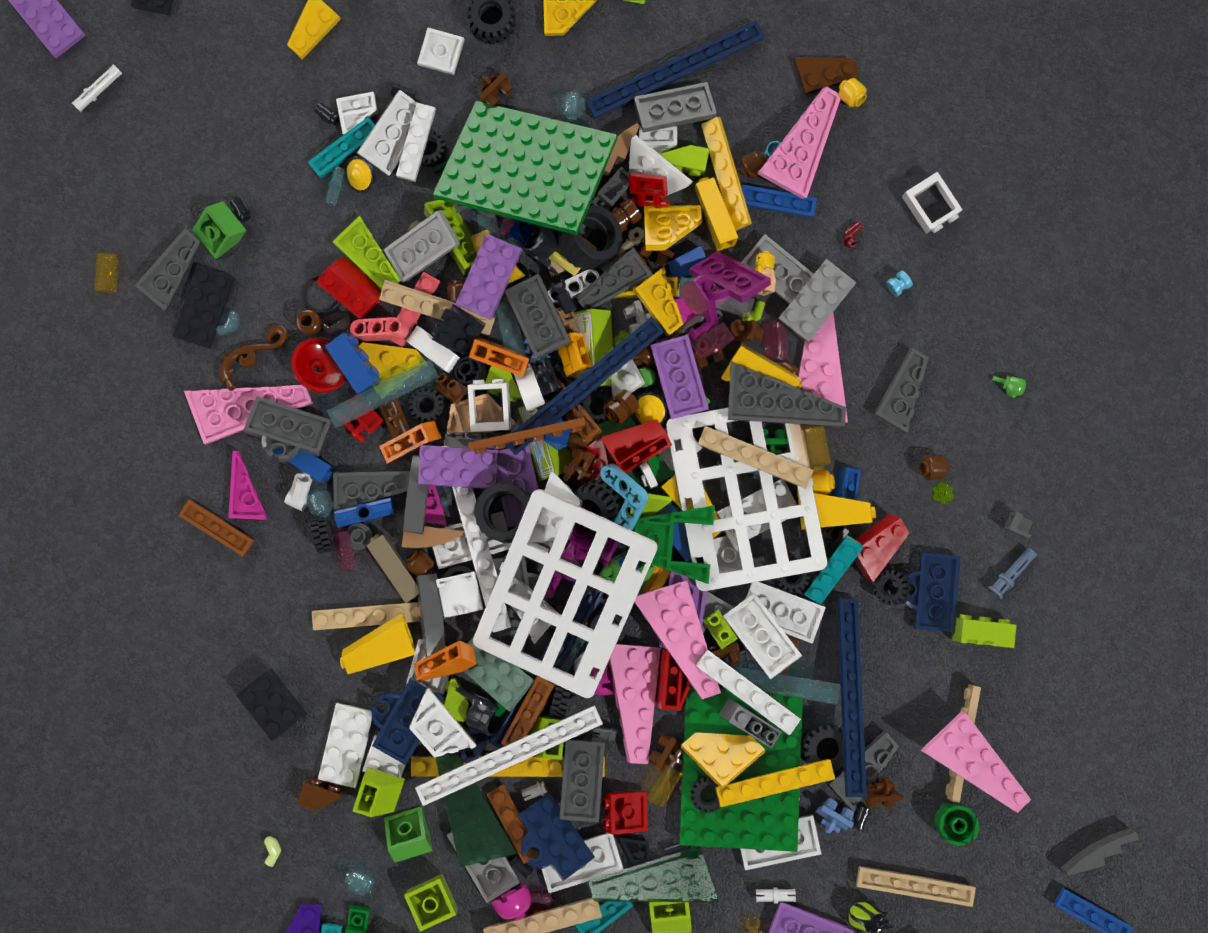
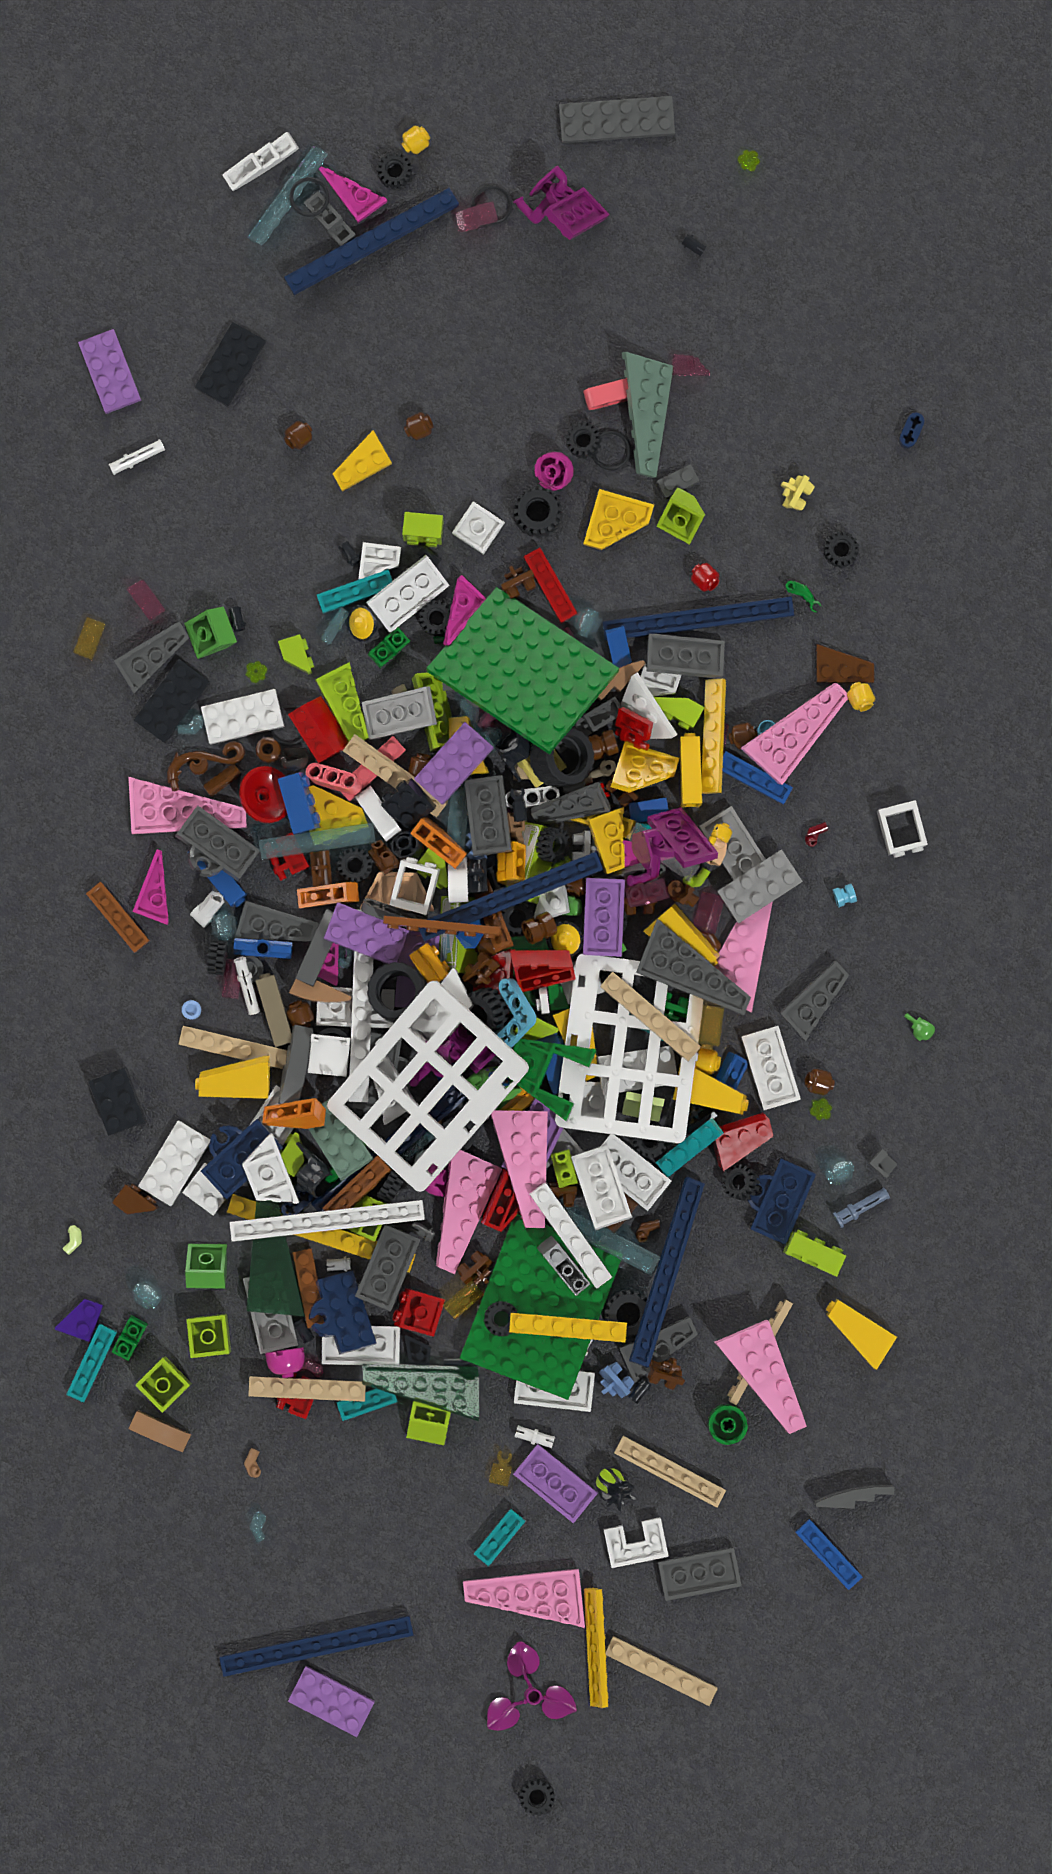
camera: 15 degrees right, 0 degrees up
(148, 219) = (146, 600): none -> clear pink slope
(242, 18) = (298, 435): none -> reddish brown head
(275, 259) = (260, 675): none -> clear neon green plant
(275, 299) = (242, 716): none -> white plate
(275, 366) = (222, 780): none -> reddish brown slope
(304, 223) = (294, 653): none -> lime slope
(315, 593) = (191, 1009): none -> light blue tile
(349, 537) = (252, 1006): none -> white pin
(378, 793) = (192, 1217): lime slope -> none
(388, 66) = (423, 529): none -> lime brick
(392, 192) = (389, 647): none -> green slope
(416, 142) = (426, 610): white plate -> none
(450, 125) = (464, 604): none -> dark pink wing
(521, 231) = (498, 730): clear blue slope -> none
(526, 83) = (550, 585): none -> red plate
(528, 476) = (429, 964): none -> light orange brick
(601, 319) = (546, 841): none -> black tyre
(608, 117) = (618, 646): none -> blue slope
(669, 28) = (705, 577): none -> red head
(722, 754) = (527, 1286): yellow plate -> none
(764, 12) = (802, 590): none -> green arm
(764, 545) = (632, 1106): none -> yellowish green panel
(814, 661) = (645, 1228): none -> reddish brown arm
(883, 469) = (770, 1068): none -> white plate
(981, 546) = (839, 1171): none -> clear light blue head
(1057, 694) = (865, 1335): none -> yellow slope

